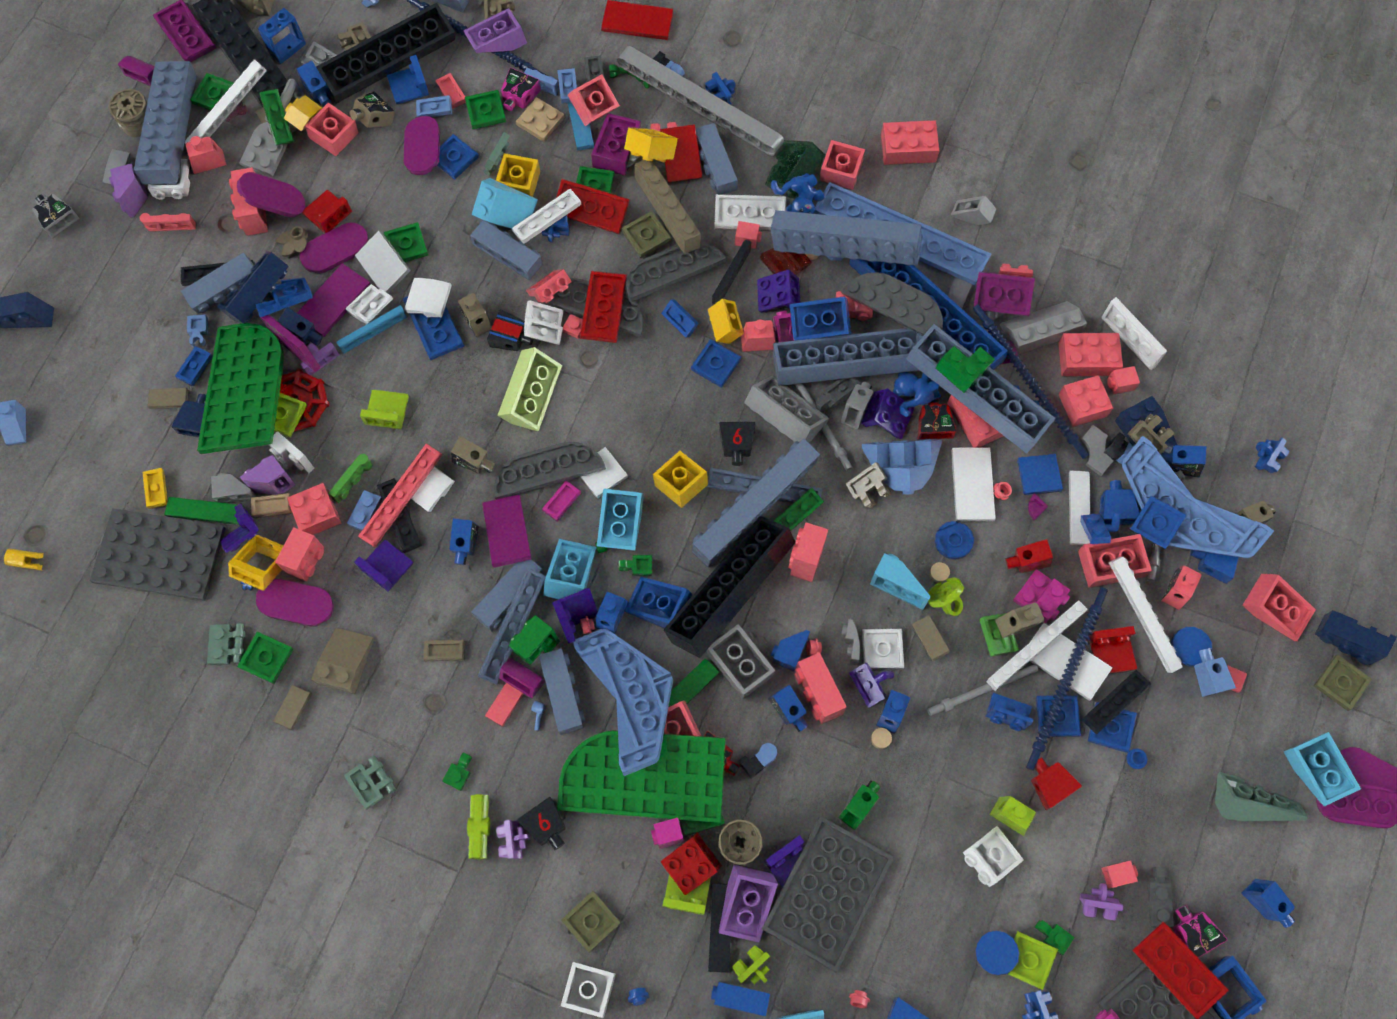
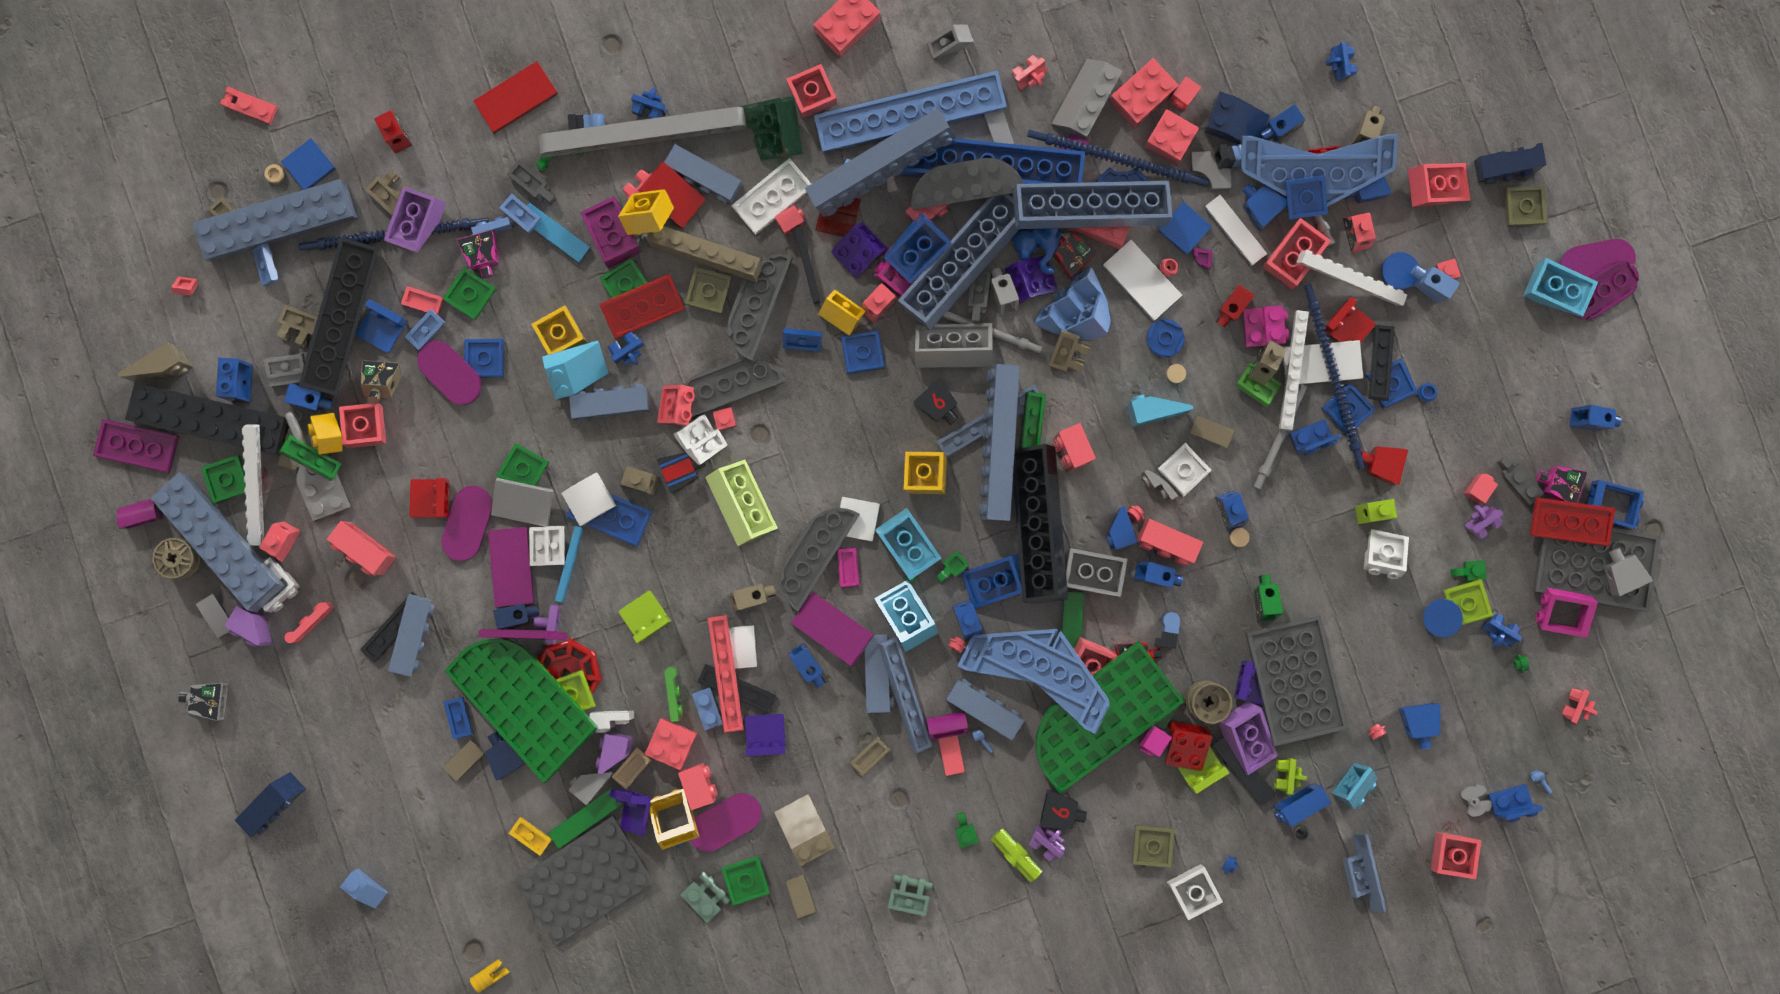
camera: 50 degrees left, 15 degrees up
(196, 327) = (426, 685): medium blue plate -> none
(254, 288) = (446, 618): dark blue wedge -> none
(271, 194) = (378, 528): magenta tile -> none
(285, 295) = (474, 593): blue wing -> none
(293, 240) = (428, 550): dark tan plate -> none
(497, 154) = (520, 323): sand green plate -> none
(533, 640) = (934, 693): green brick -> none
(540, 119) = (523, 262): tan plate -> none
(546, 216) = (620, 348): white plate -> none
(572, 609) = (938, 645): dark purple bracket -> none
(593, 100) = (558, 211): coral brick -> none
(603, 306) = (735, 384): red tile -> none
(802, 186) = (814, 158): blue animal -> none
(869, 684) = (1198, 506): dark purple plate -> none
(944, 594) = (1197, 389): lime tile -> none
(963, 370) = (1076, 206): green brick -> none
(1004, 294) = (1038, 100): magenta piece -> none
(1097, 530) = (1266, 241): blue plate -> none
(1133, 334) = (1163, 48): white tile -> none
(1145, 429) = (1238, 128): dark tan plate -> none
(1248, 803) = (1527, 357): sand green wedge -> none

